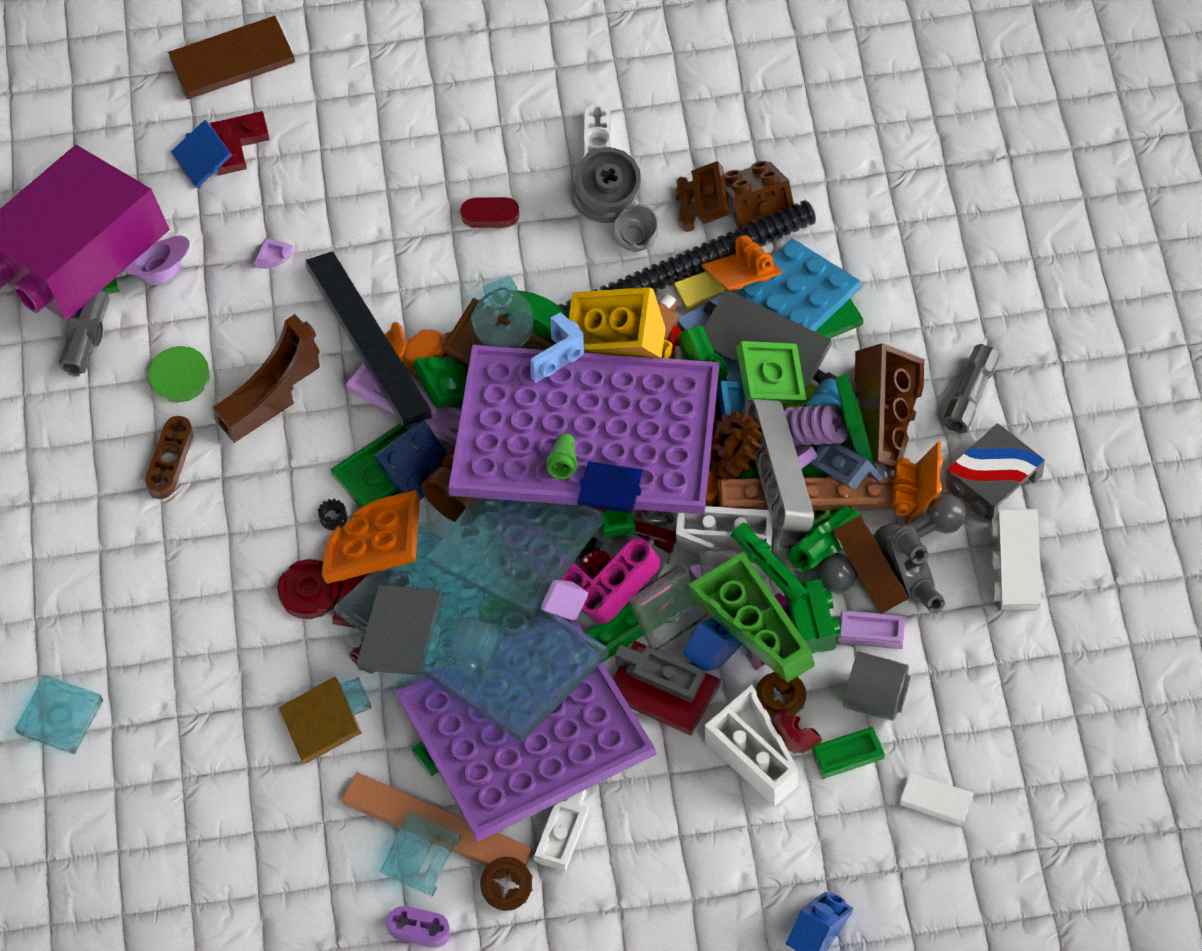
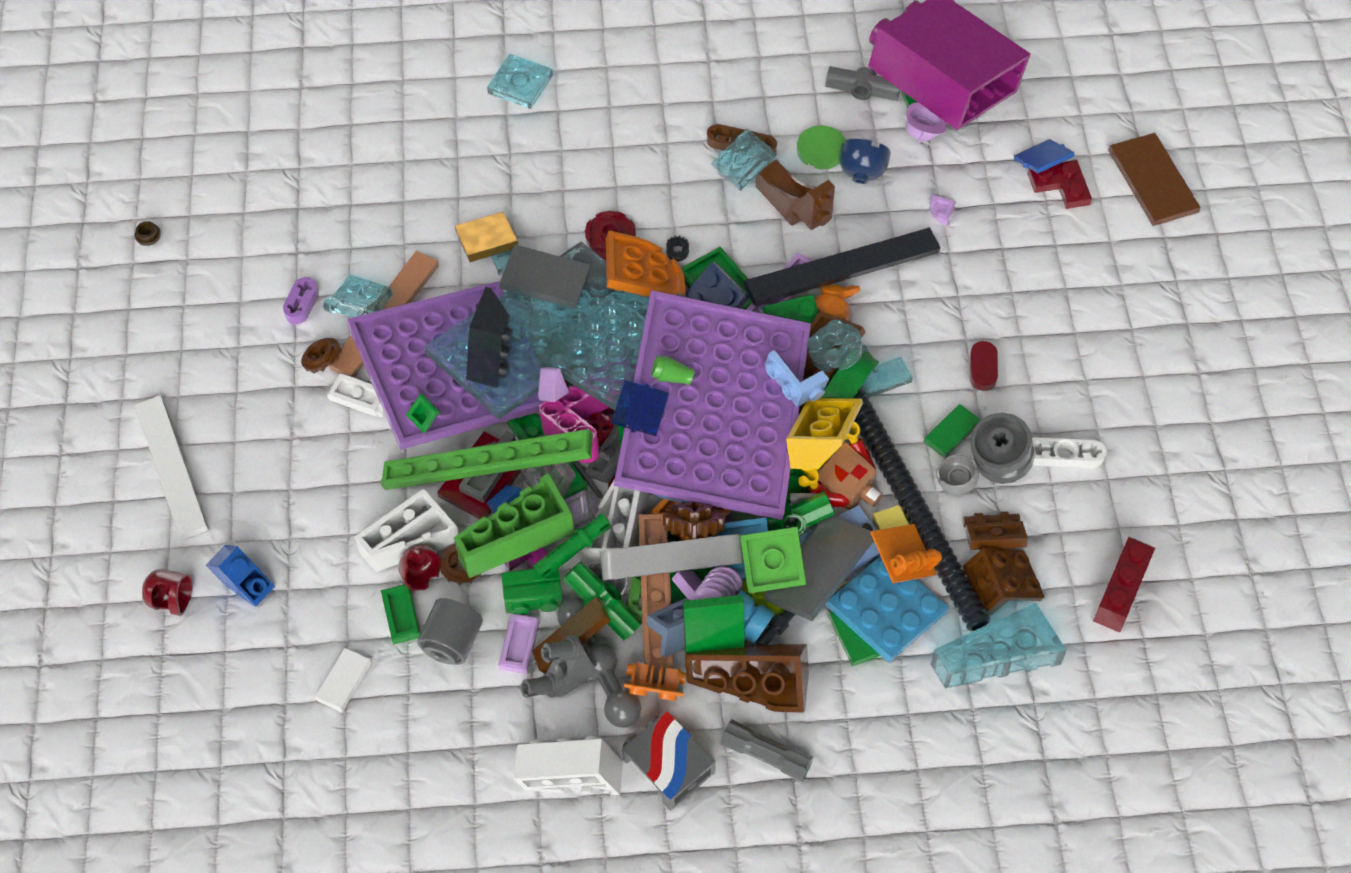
camera: 90 degrees right, 0 degrees up
(210, 442) = (743, 159): none -> clear light blue plate
(212, 323) = (862, 160): none -> dark blue cylinder
(530, 641) = (489, 342): none -> black slope
(575, 239) = (951, 431): none -> green tile
(615, 723) = (422, 413): none -> green slope
(662, 665) = (487, 459): none -> bright green tile
(775, 93) = (1124, 584): none -> dark red arch
(837, 192) = (1000, 648): none -> clear light blue wedge

